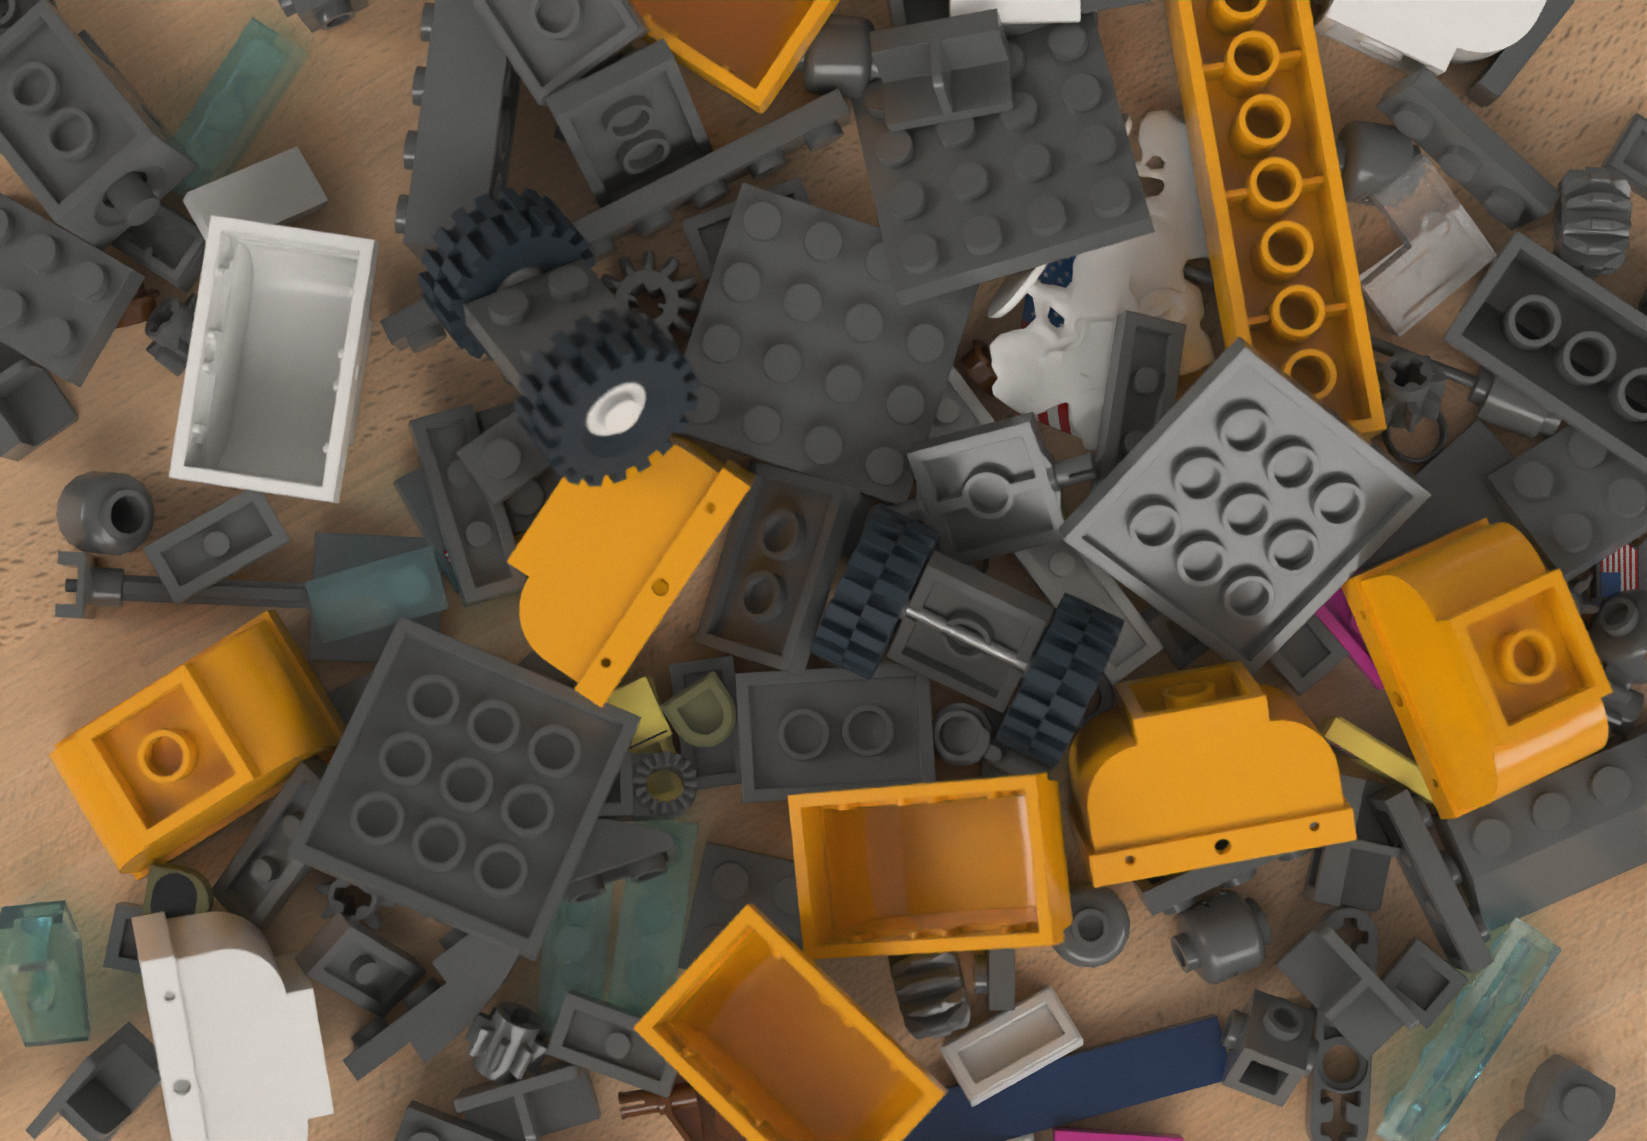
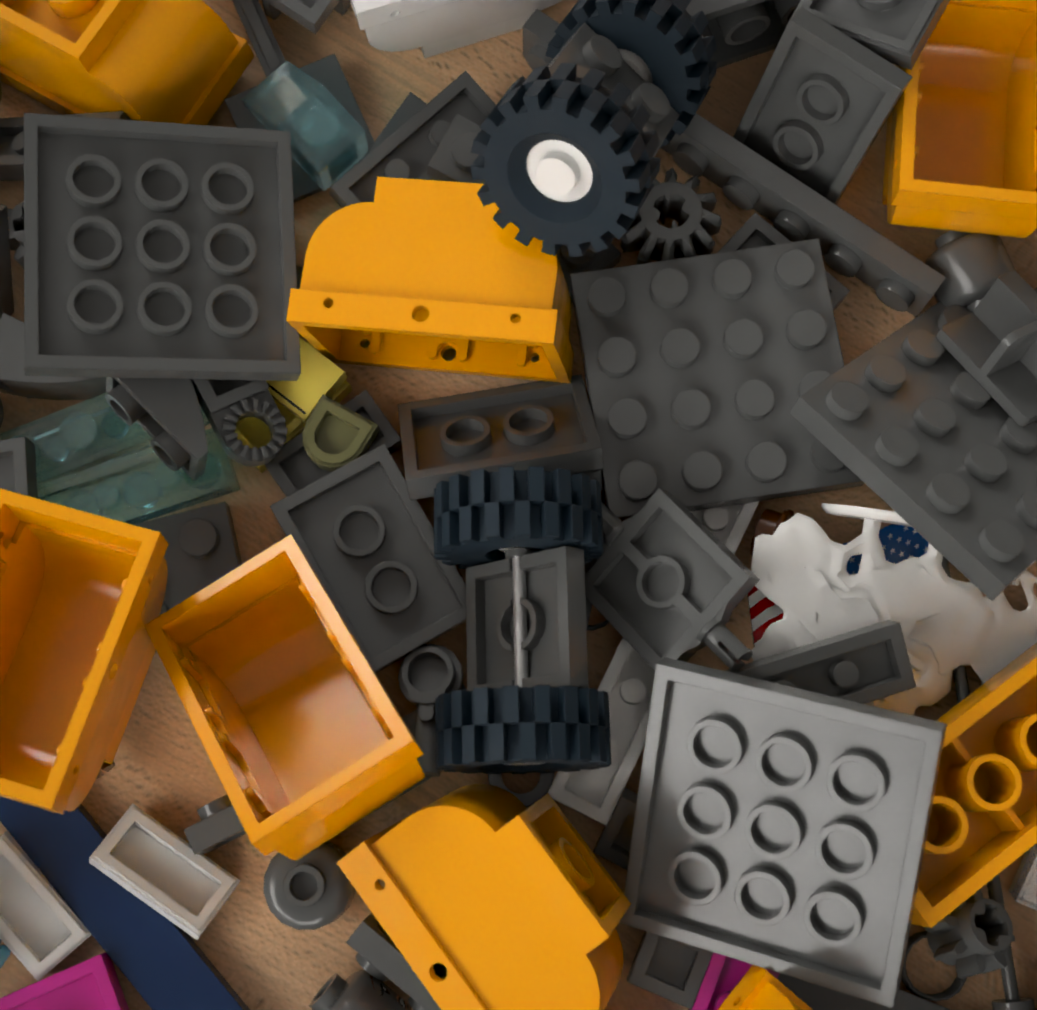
camera: 65 degrees right, 10 degrees down
(930, 993) = (172, 769): dark grey gear -> none

